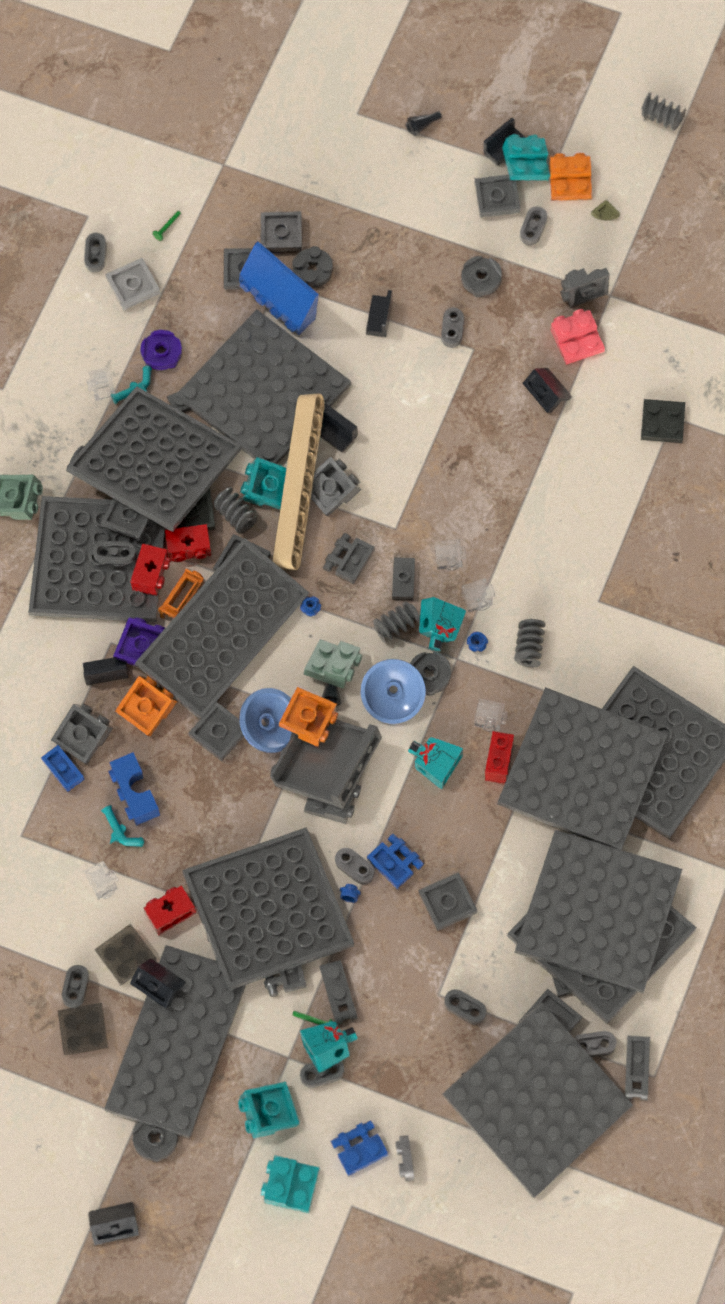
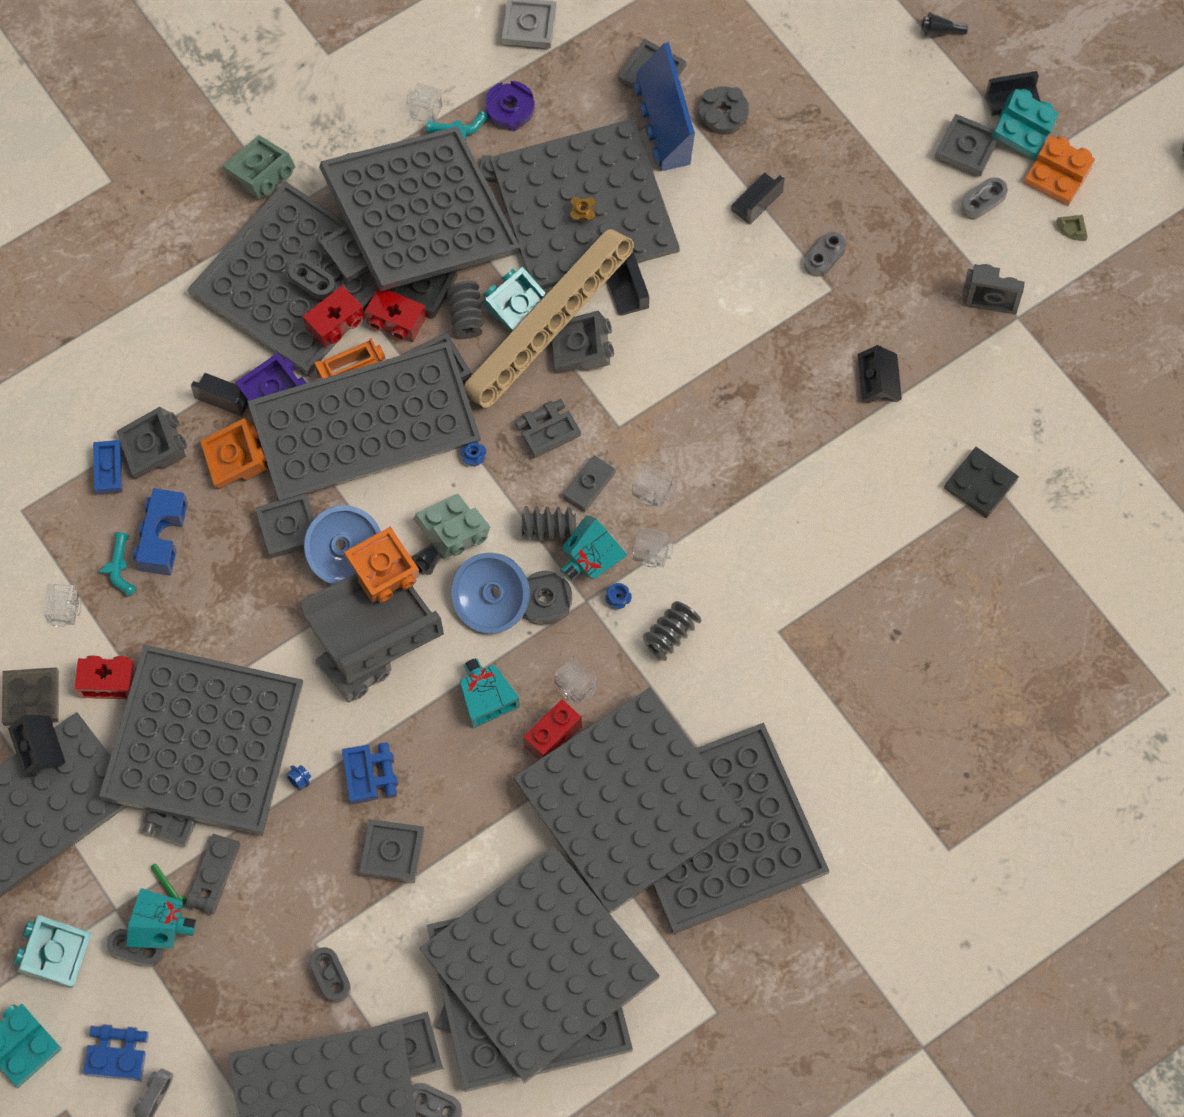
camera: 30 degrees right, 0 degrees up
(268, 398) = (582, 215): none -> pearl gold plate
(281, 231) = (716, 55): flat silver plate -> none
(353, 866) = (325, 750): flat silver plate -> none
(477, 286) = (892, 231): dark grey plate -> none
(577, 336) = (950, 339): coral plate -> none

